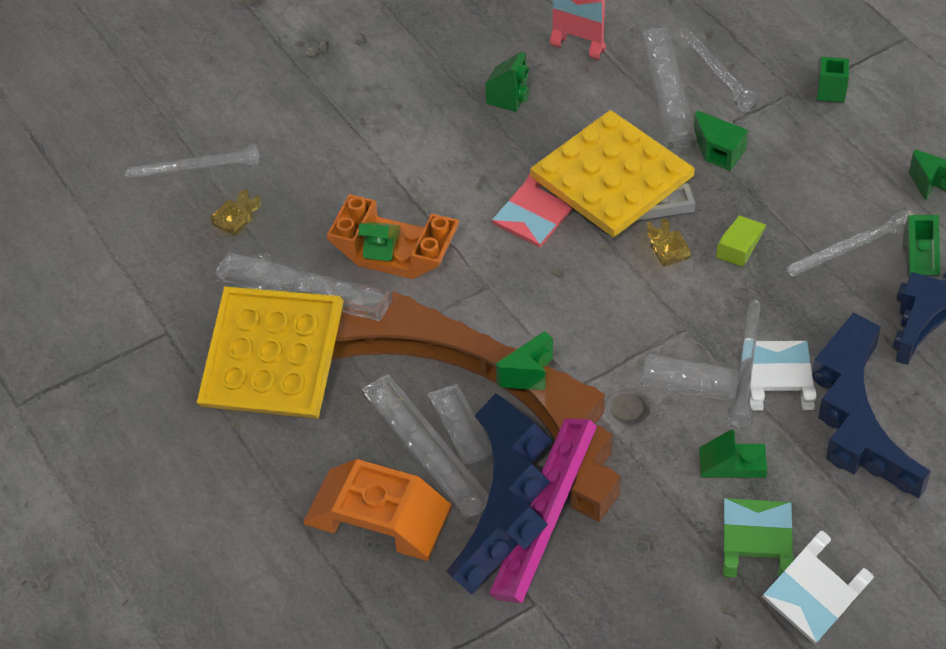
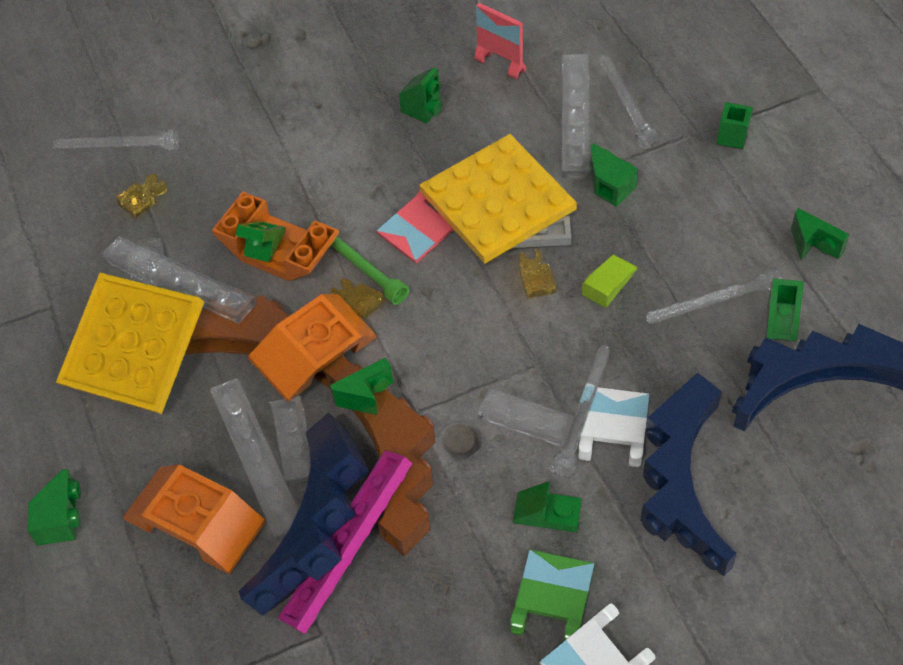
camera: 10 degrees right, 5 degrees up
(230, 525) = (54, 511): none -> green slope
(456, 333) = (309, 343): none -> orange slope
(492, 287) = (361, 299): none -> clear yellow plate
(526, 273) = (393, 289): none -> bright green piece

